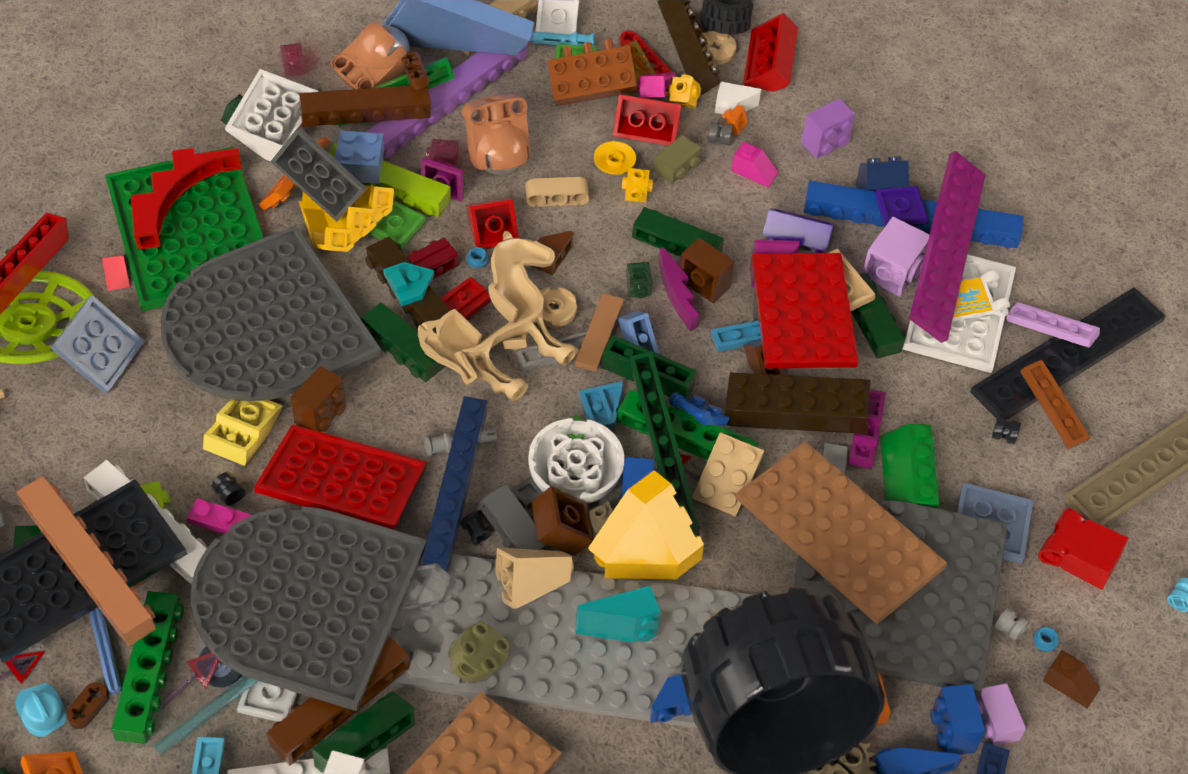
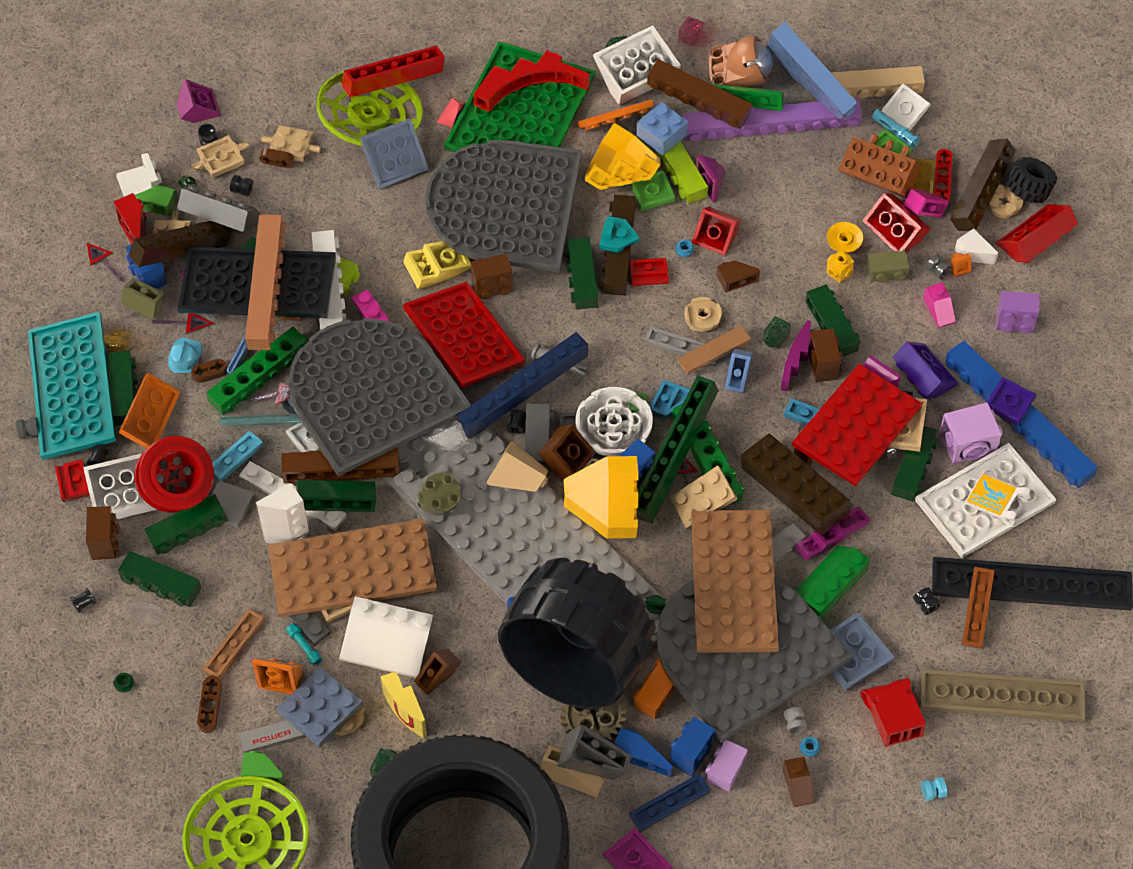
camera: 45 degrees right, 5 degrees up
(226, 486) = (394, 296): black wheel -> none
(318, 174) = (617, 124): dark grey slope -> none
(415, 70) = (752, 88): reddish brown beam -> none
(435, 256) = (652, 230): dark red brick -> none
(443, 150) = (730, 160): clear pink brick -> none
(497, 133) = (768, 169): nougat piece -> none
(517, 342) = (656, 319): tan plate -> none
(519, 301) = (676, 295): tan animal -> none
(557, 191) = (781, 235): tan beam -> none
(620, 617) = (545, 534): teal slope -> none
(672, 375) = (725, 403): dark green brick -> none
(684, 91) = (939, 220): yellow brick -> none
(697, 407) = (725, 444): blue plate -> none
(883, 174) = (1019, 370): dark blue slope -> none
(947, 247) = (1009, 449): magenta plate -> none
(1053, 324) = (1036, 555): lavender plate -> none

